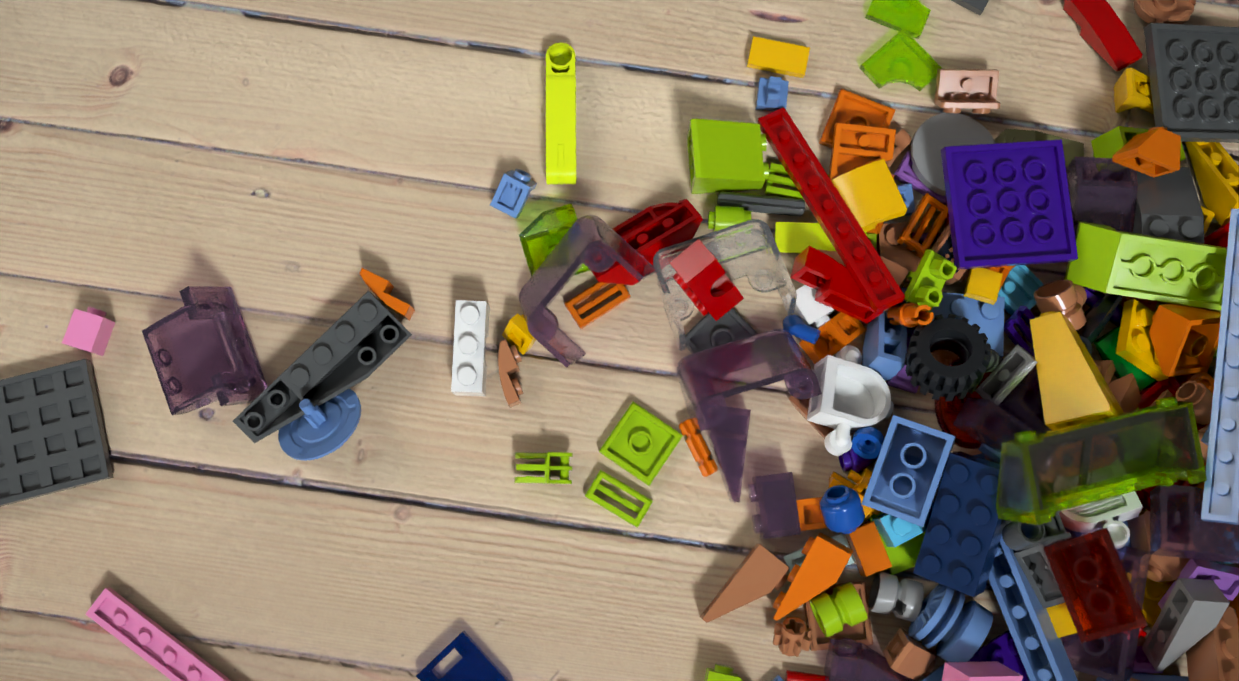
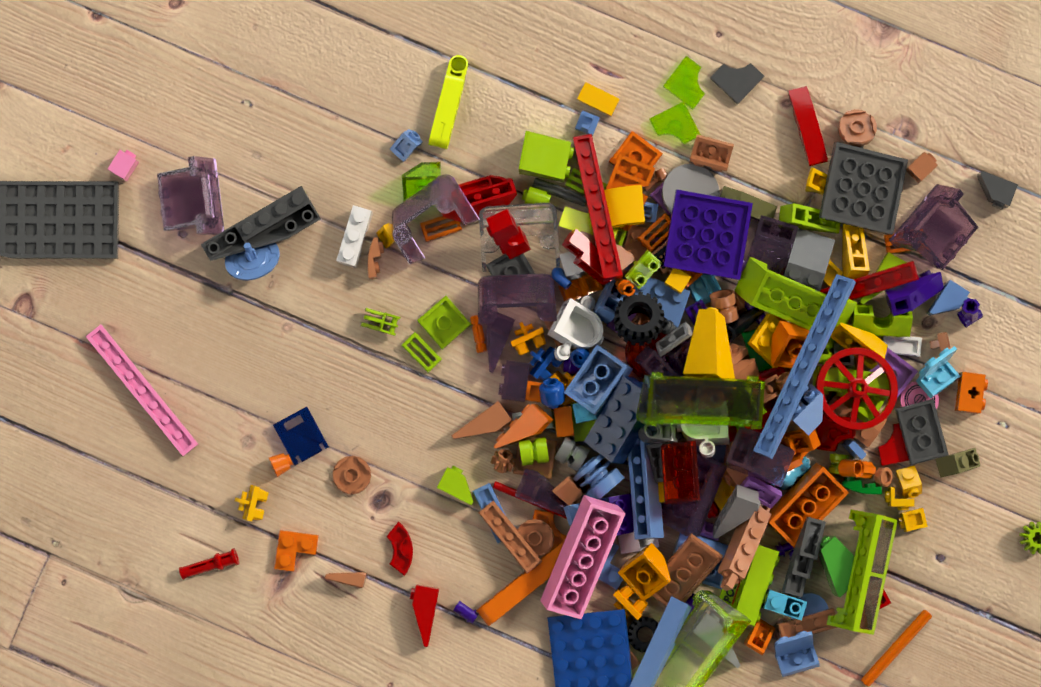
camera: 20 degrees right, 5 degrees up
(382, 289) = (309, 184): orange slope -> none
(788, 427) = (537, 337): none -> light orange hips
(807, 465) = (539, 370): none -> blue hips
(1151, 152) = (806, 225): orange slope -> none

